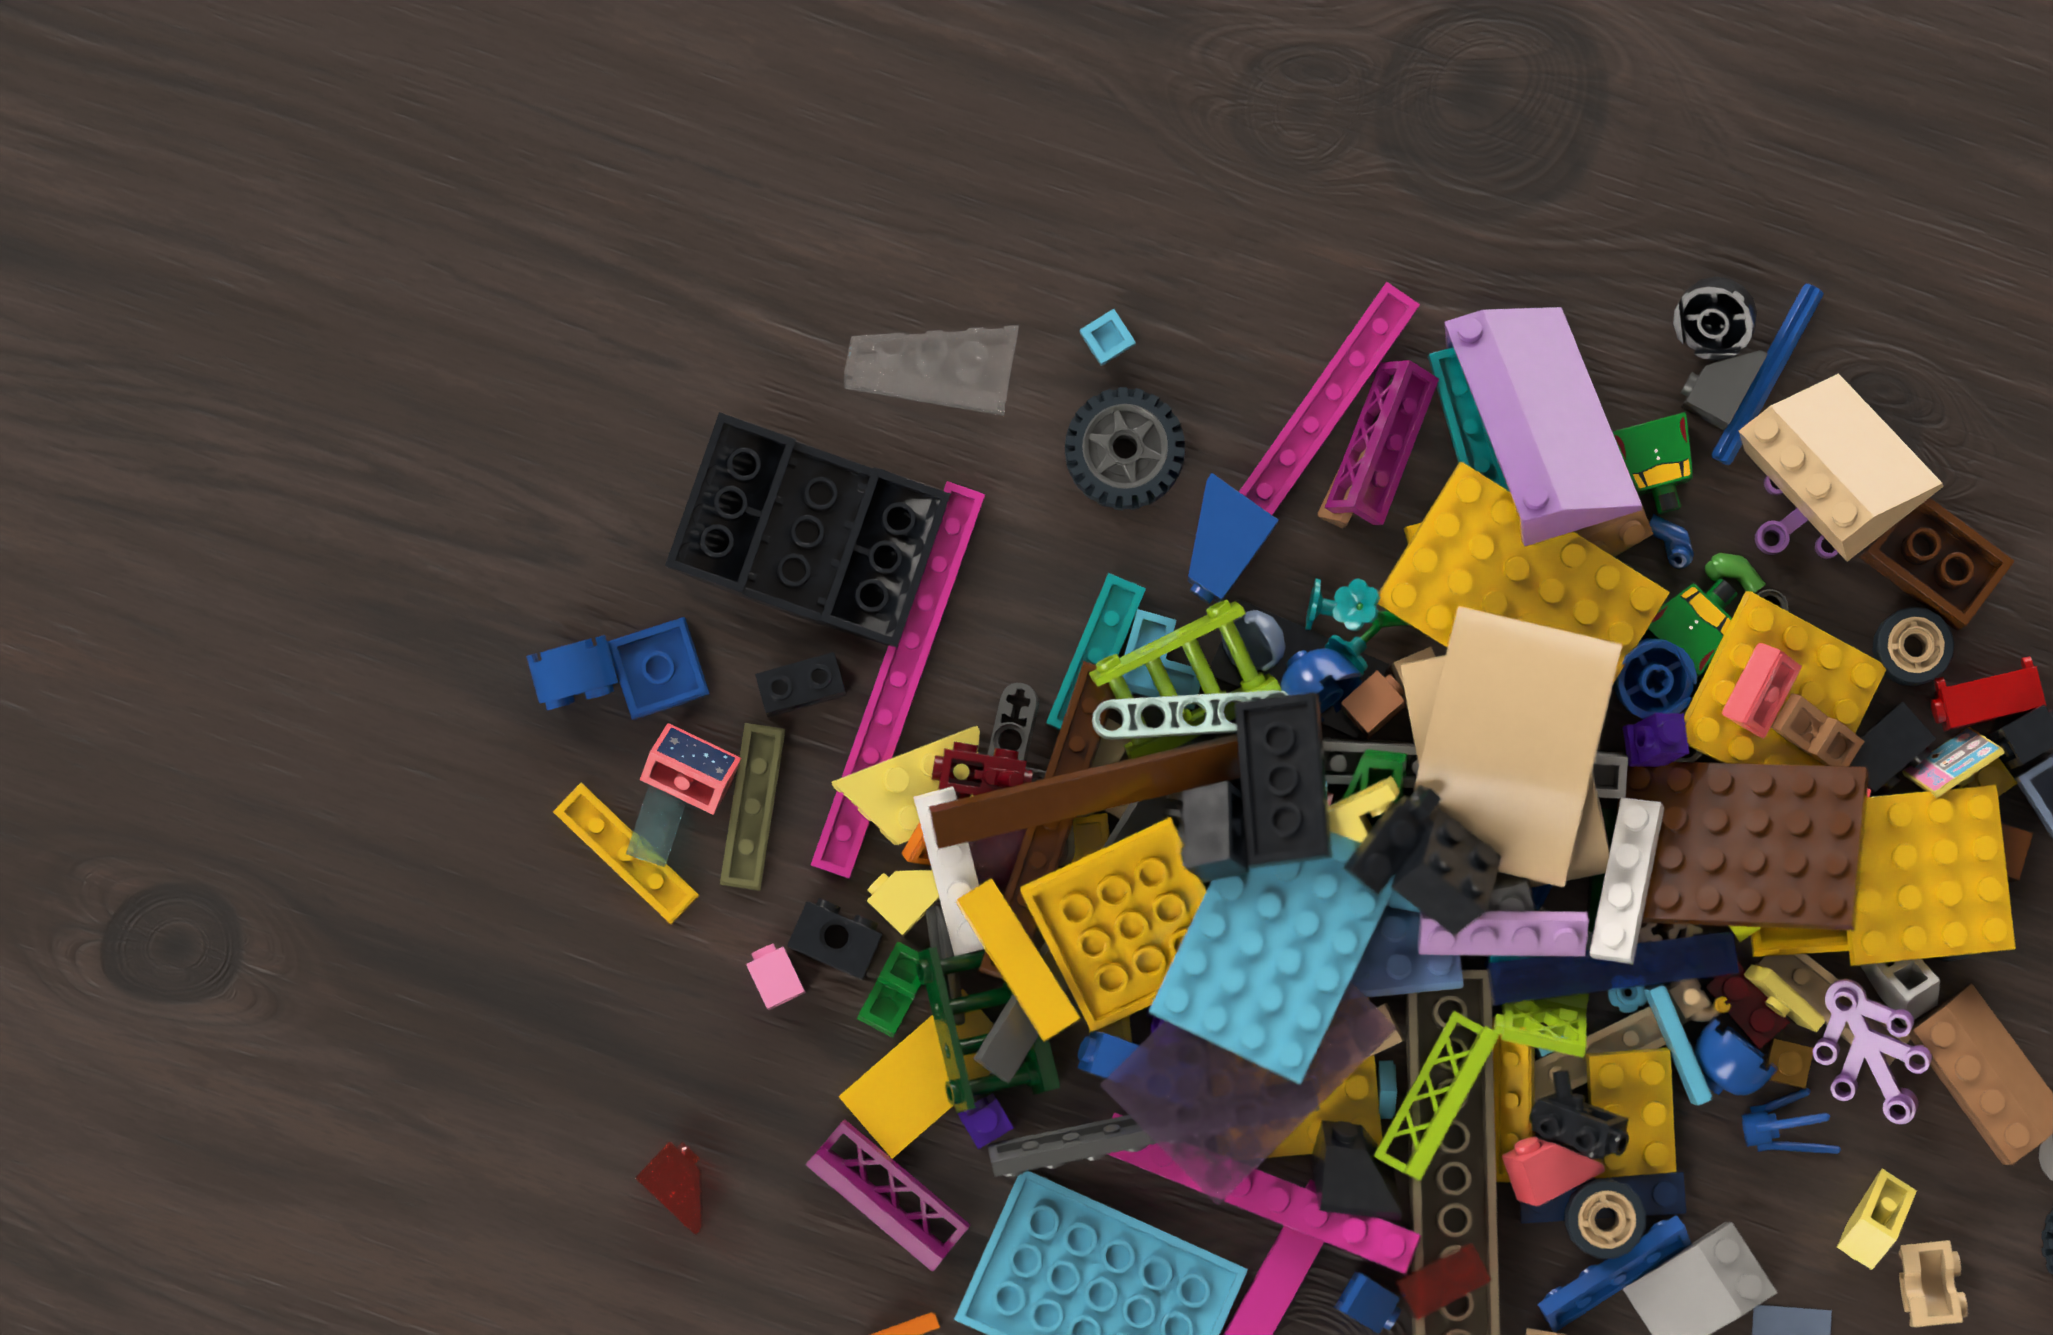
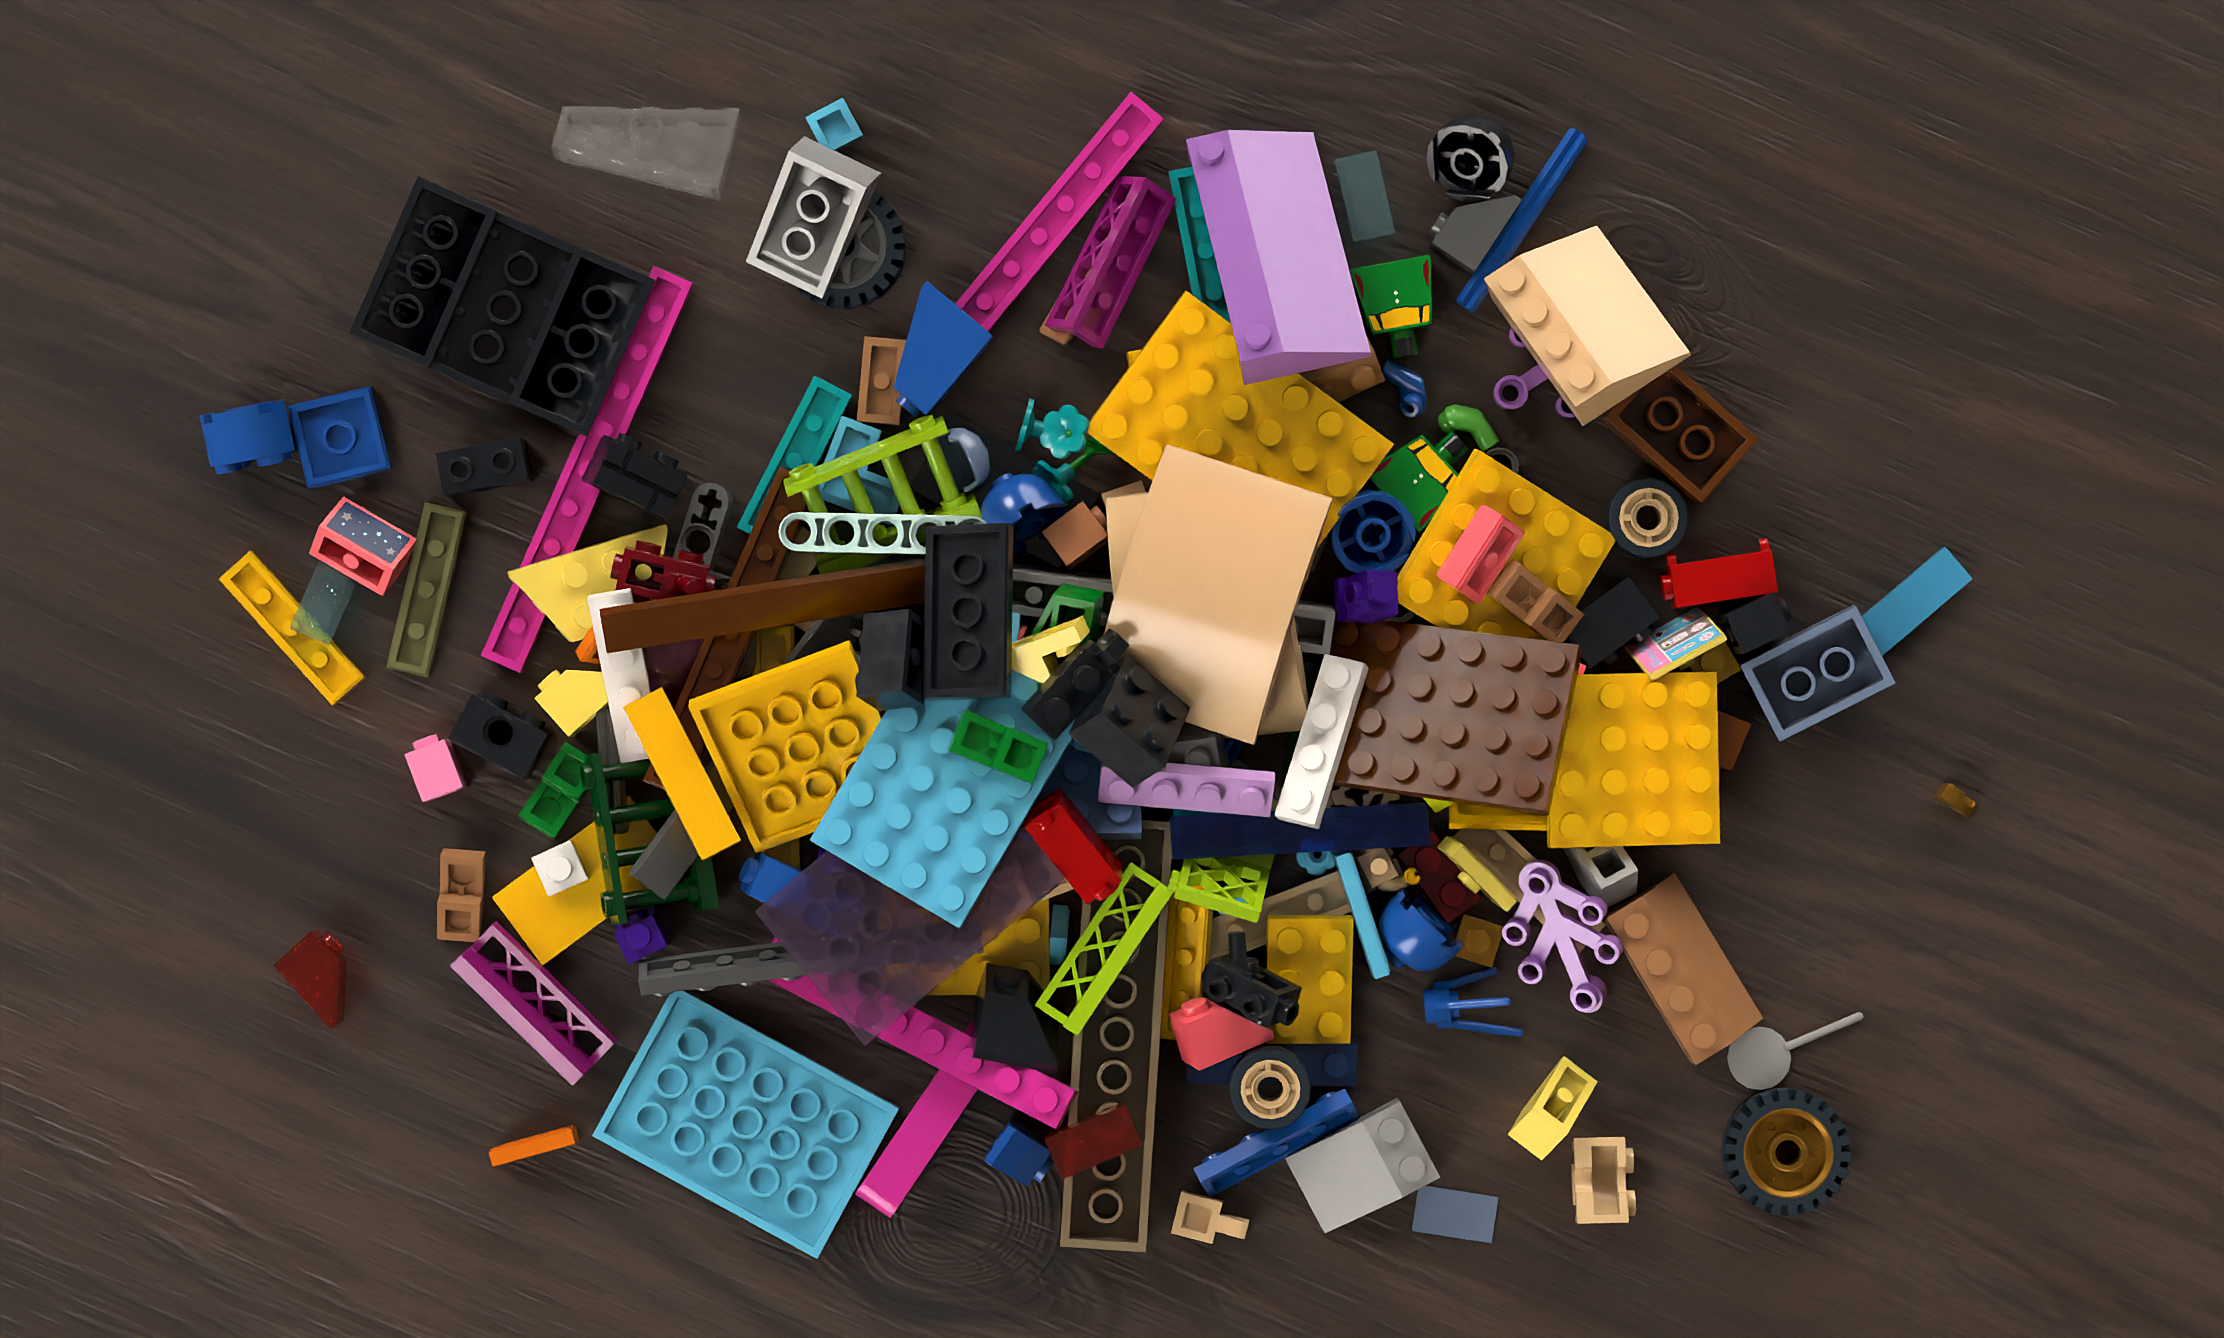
camera: 10 degrees right, 5 degrees up
(808, 1097) = (461, 895): none -> medium nougat slope
(902, 1063) = (560, 868): none -> white plate
(946, 681) = (635, 476): none -> black brick
(1097, 421) = (812, 216): none -> light grey slope
(1170, 572) = (878, 374): none -> medium nougat plate
(1323, 906) = (997, 746): none -> green slope
(1401, 998) = (1074, 847): none -> red brick
(1616, 364) = (1364, 196): none -> clear light blue tile

